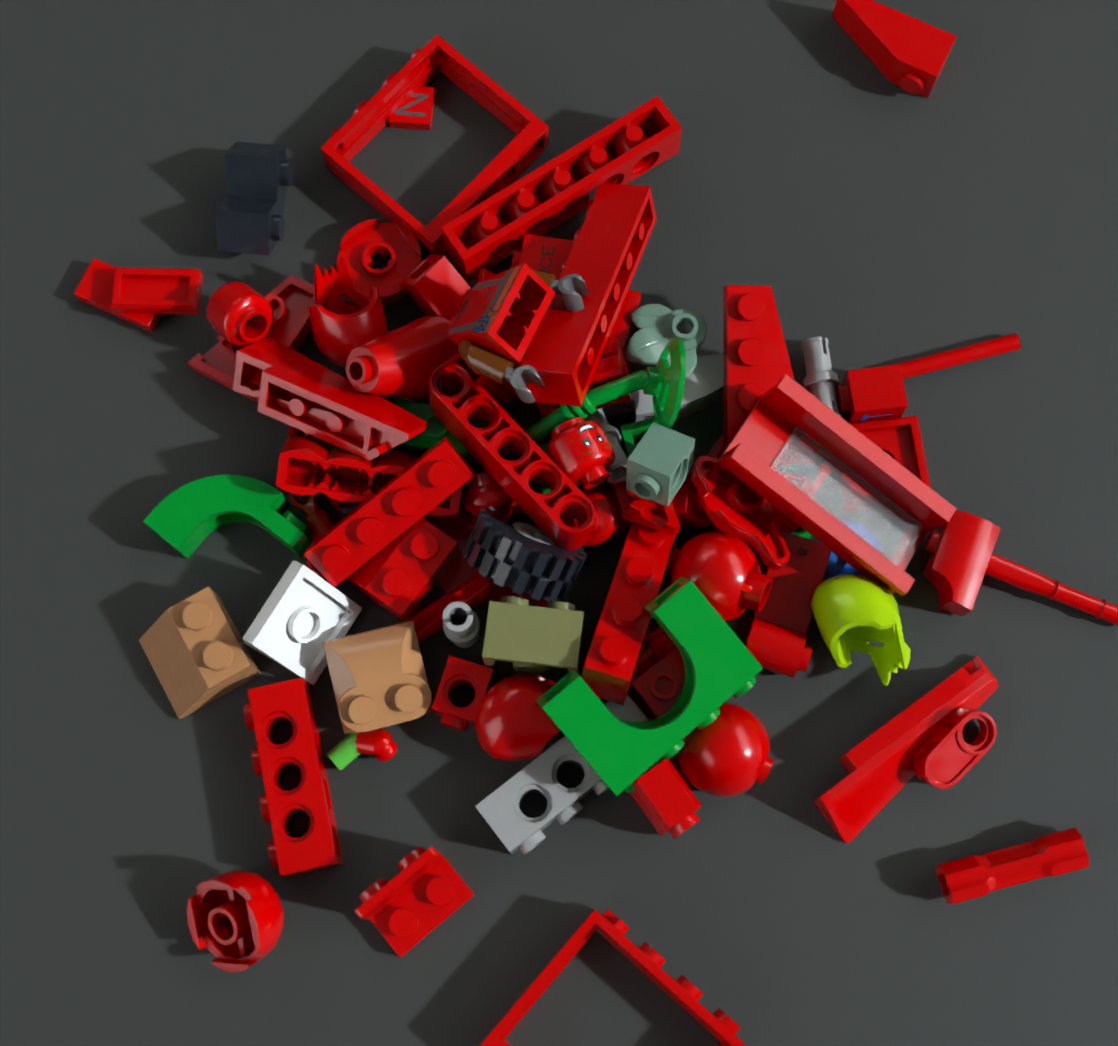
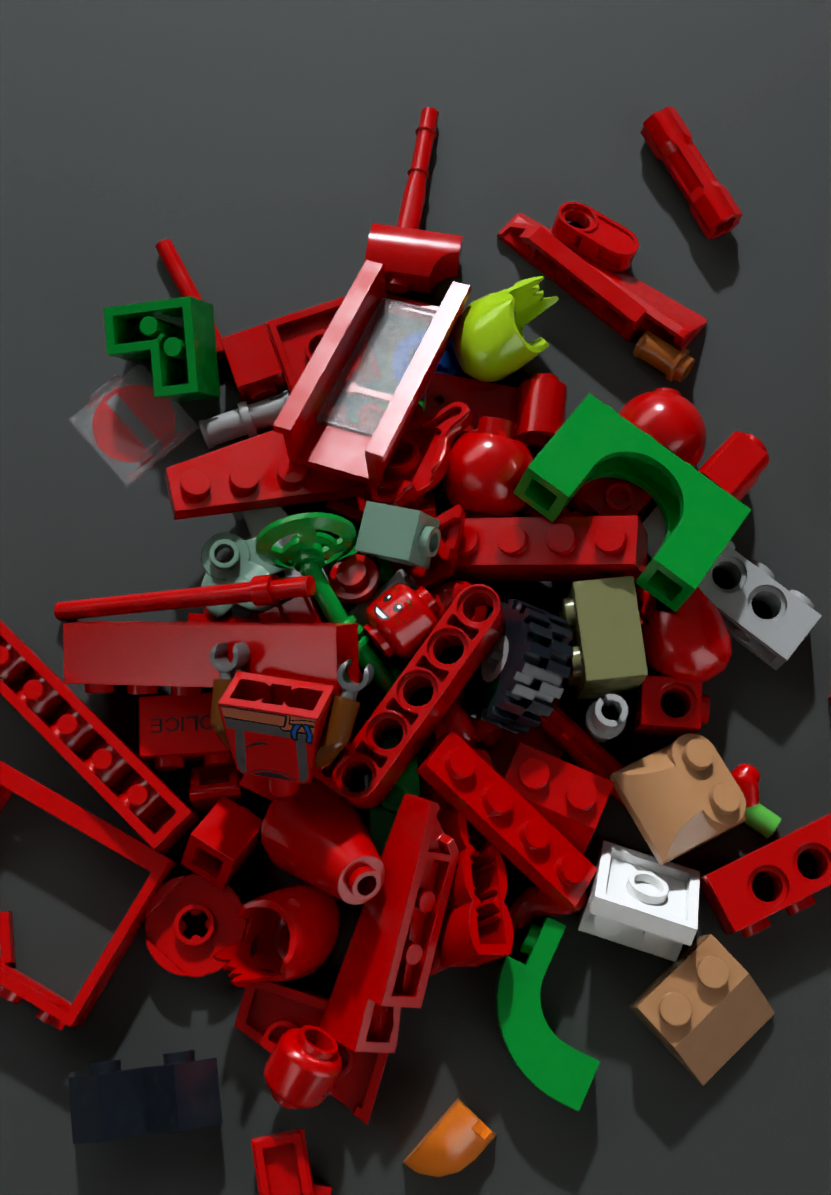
camera: 105 degrees left, 0 degrees up
(156, 428) = (450, 1143): none -> orange brick
(630, 423) = (354, 578): none -> red plate
(634, 336) = (261, 590): none -> red bar
(811, 783) = (664, 357): none -> dark orange pin
(840, 288) = (131, 424): none -> clear piece
(900, 327) = (176, 338): none -> green brick

